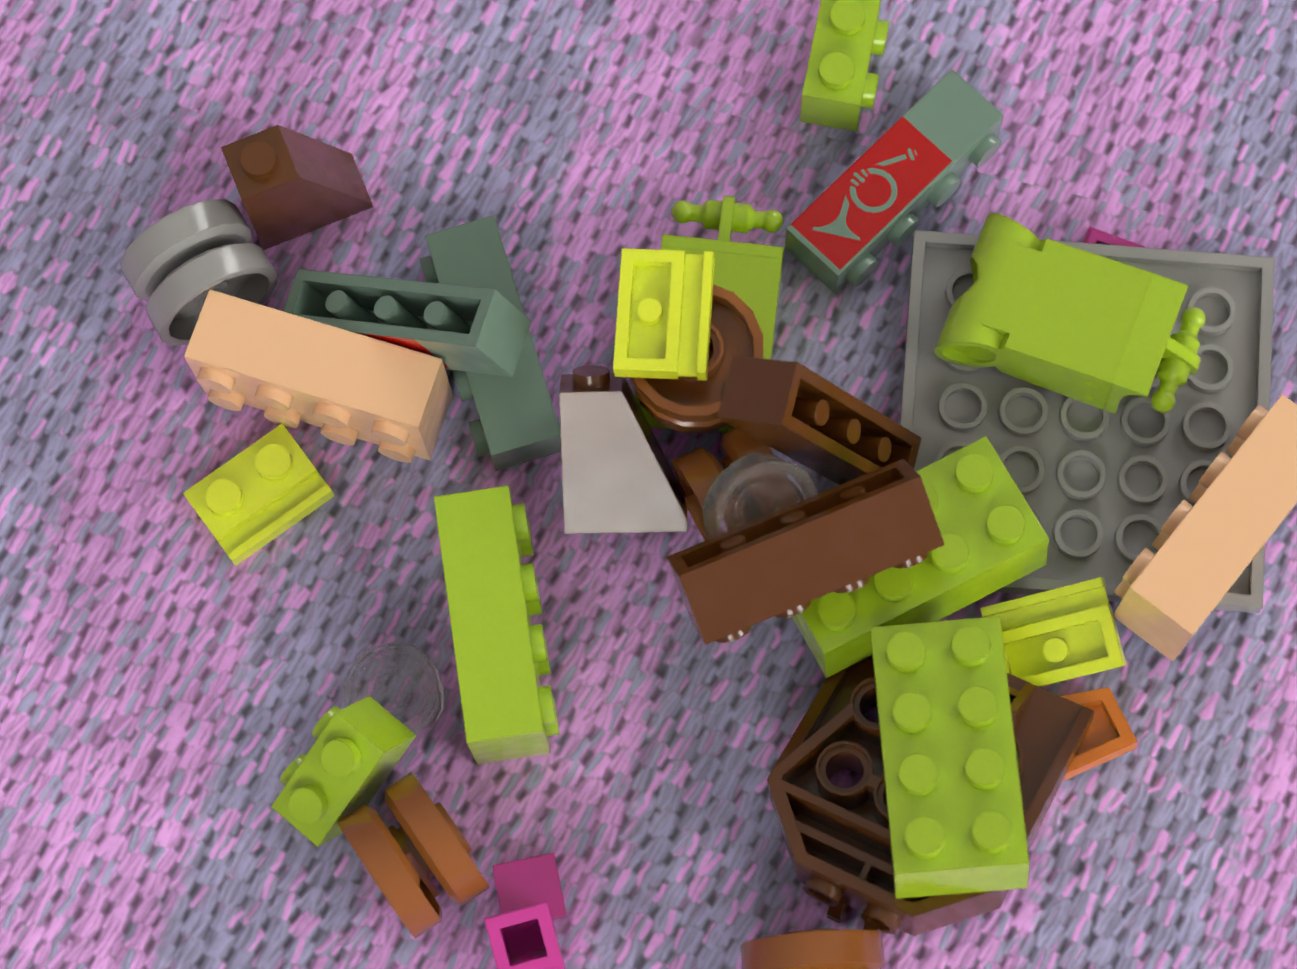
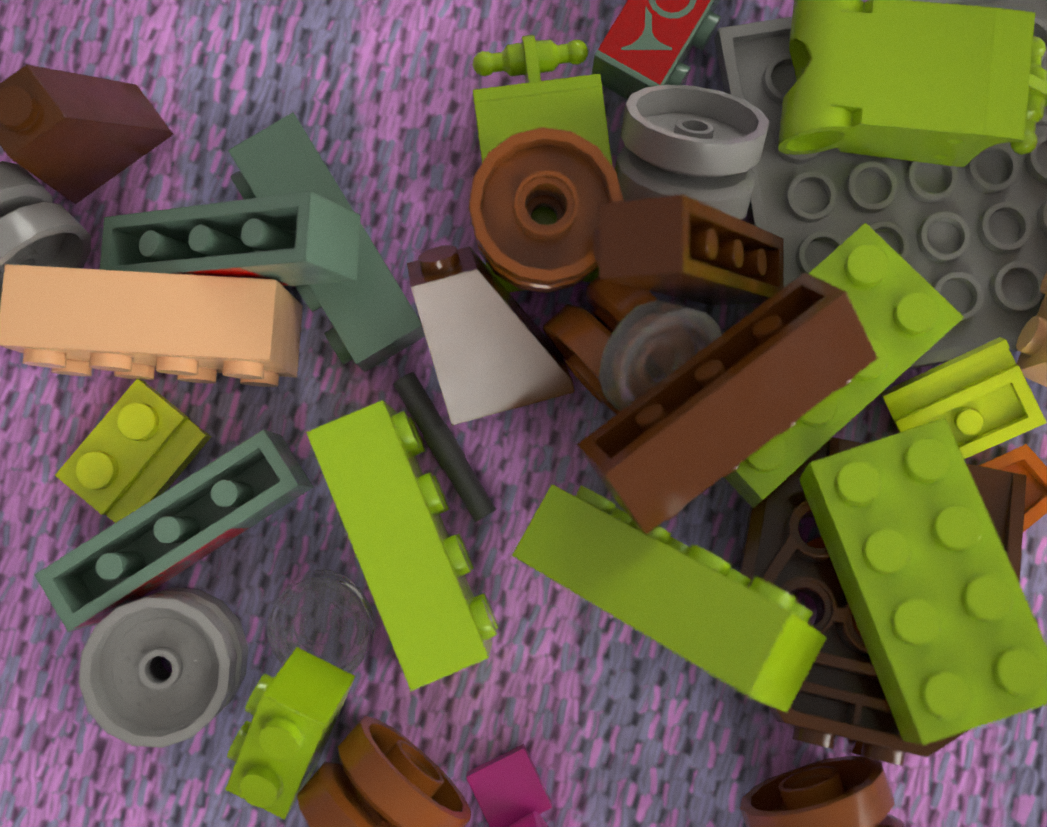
camera: 20 degrees left, 10 degrees up
(251, 721) = (132, 690): none -> light grey wheel
(287, 566) = (174, 530): none -> sand green brick
(552, 558) = (444, 446): none -> dark grey piece
(663, 314) = (505, 173): neon yellow plate -> none
(721, 718) = (674, 594): none -> lime brick
(851, 333) = (691, 145): none -> light grey wheel

